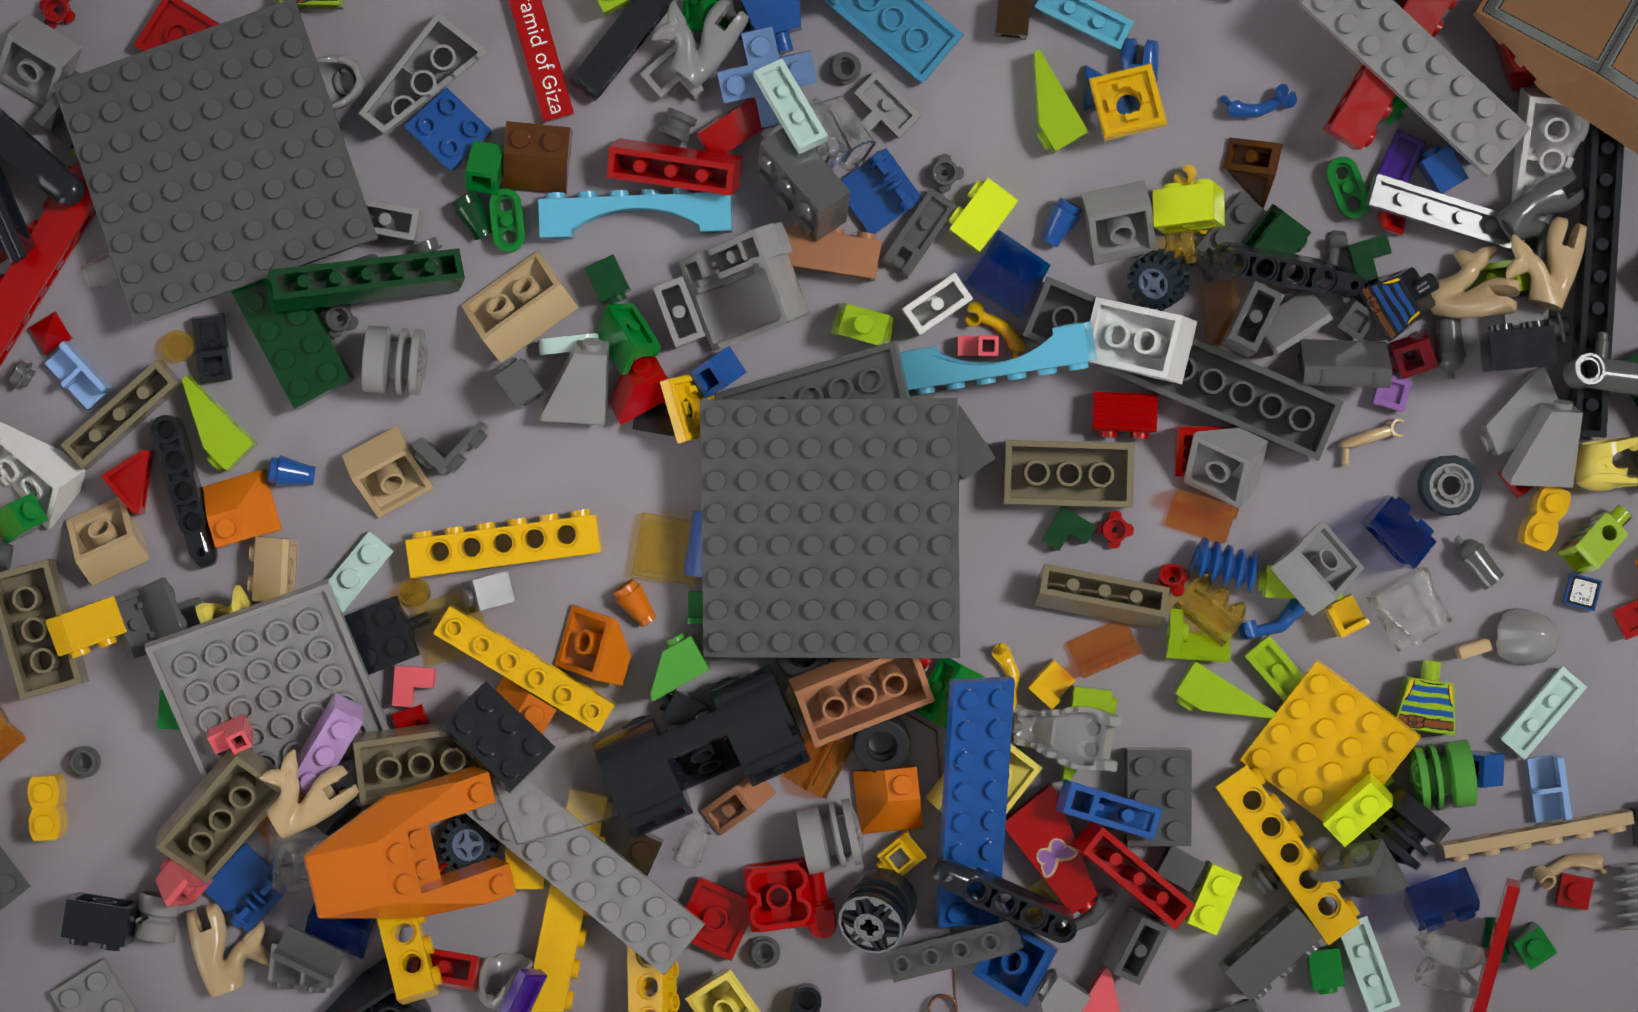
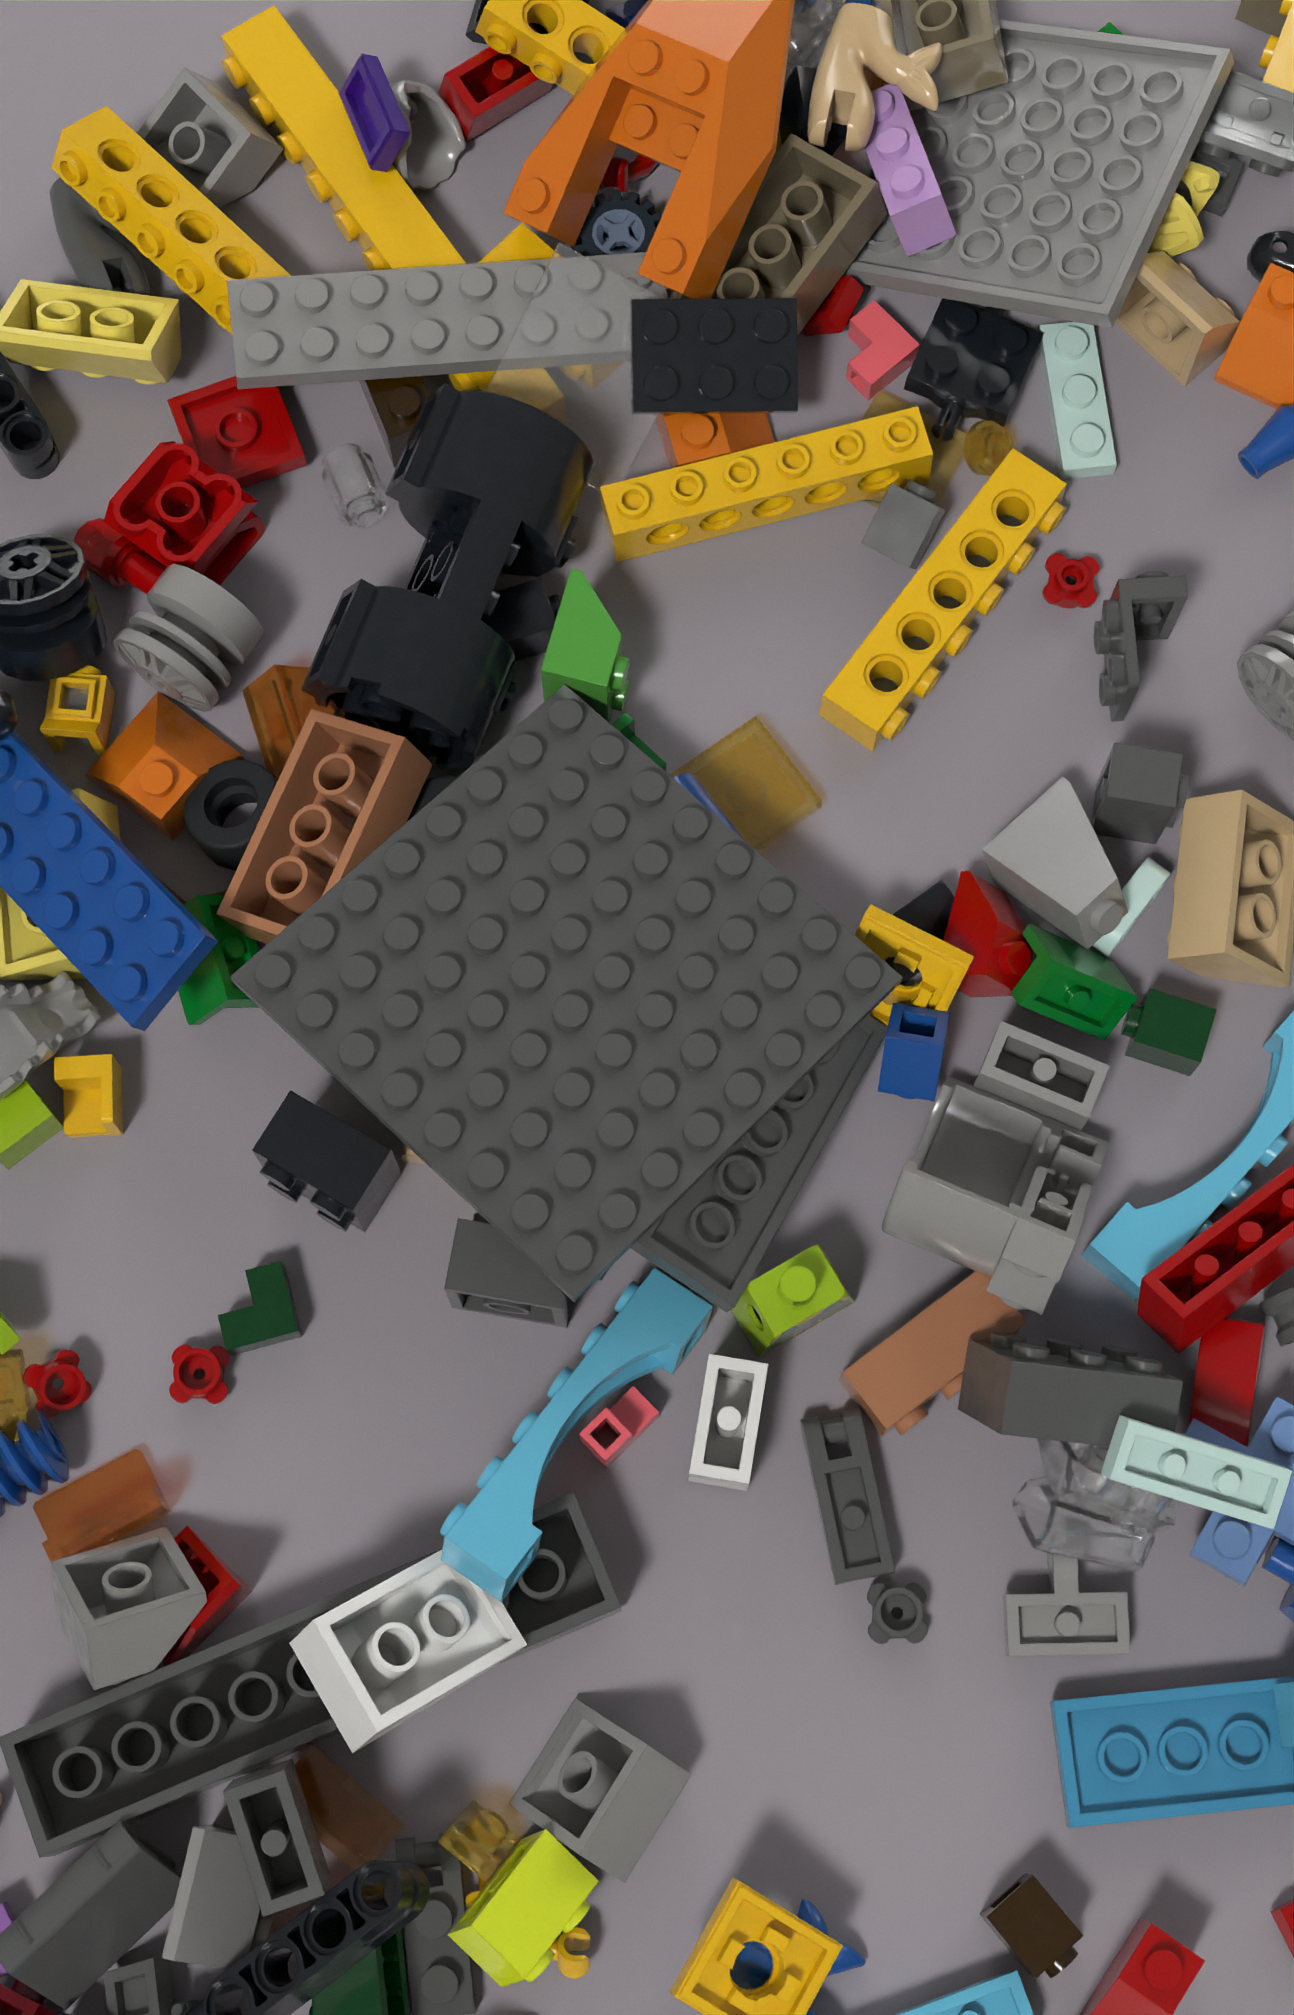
camera: 135 degrees right, 15 degrees down
(231, 734) = (1020, 72): coral piece -> none
(387, 471) = (1179, 531): tan slope -> none
(451, 502) = (1069, 596): none -> red plate
(593, 646) = (706, 583): orange slope -> none
(635, 602) = (717, 688): orange cone -> none
(736, 804) = (338, 566): nougat slope -> none
(764, 962) = (129, 441): dark grey plate -> none
(845, 57) = (1189, 1612): dark grey plate -> none
(880, 191) = (955, 1498): blue hinge -> none
(982, 215) = (791, 1606): neon yellow brick -> none
(989, 558) = (326, 1162): none -> black brick
(1003, 656) = (186, 1072): yellow piece -> none
(1007, 274) = (677, 1563): clear blue slope -> none
(1013, 339) = (661, 1469): yellow piece -> none
(1056, 115) = (836, 1850): lime slope -> none
(1060, 222) = (679, 1711): blue cone -> none
(1068, 473) = (330, 1378): dark tan brick -> none
(1101, 596) = (127, 1266): dark tan brick -> none
(1103, 648) = (63, 1208): clear orange panel -> none
(1124, 413) = (335, 1536): red brick -> none
(1149, 285) = (466, 1763): black wheel -> none

